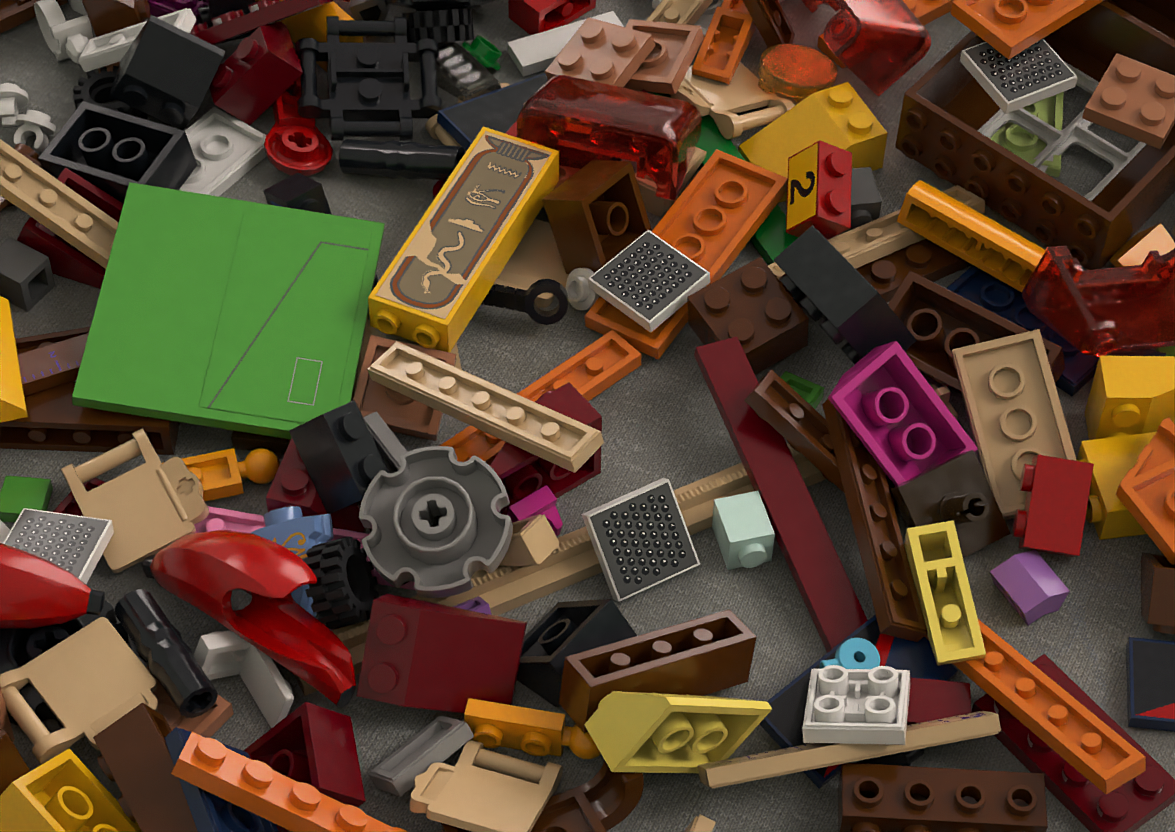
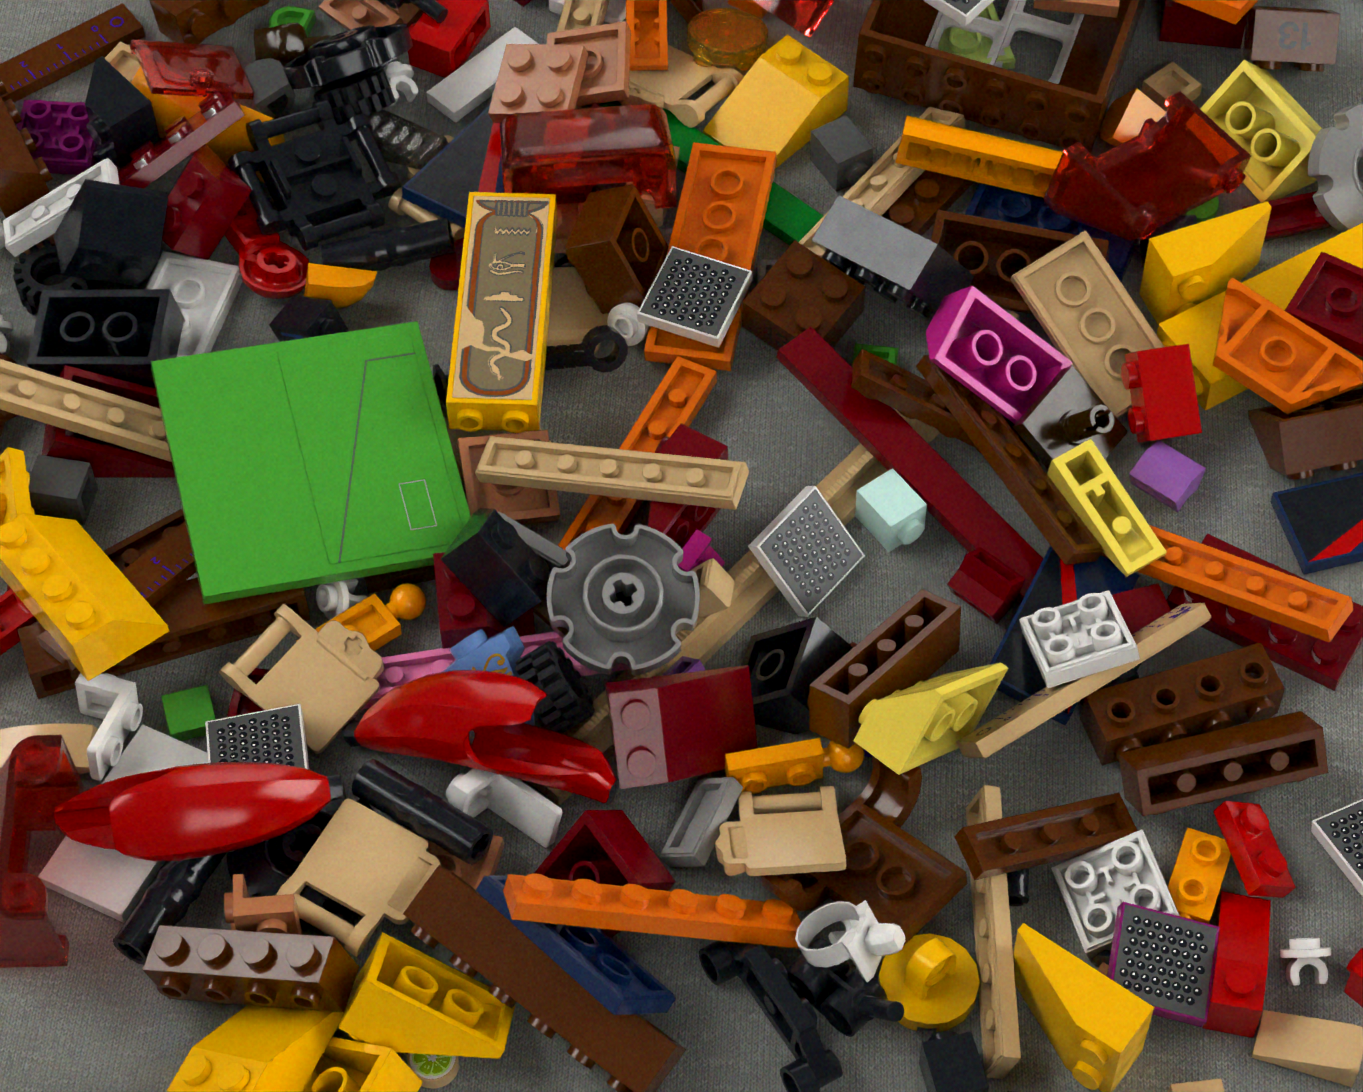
camera: 20 degrees left, 5 degrees up
(203, 439) = (337, 597): none -> white plate
(341, 177) = (338, 284): none -> light orange brick
(484, 52) = (410, 109): green plate -> none
(488, 22) = (400, 79): none -> white plate
(801, 627) = (986, 584): none -> dark red piece
(819, 190) = (813, 156): red brick -> none
(854, 649) = (1050, 592): medium azure piece -> none

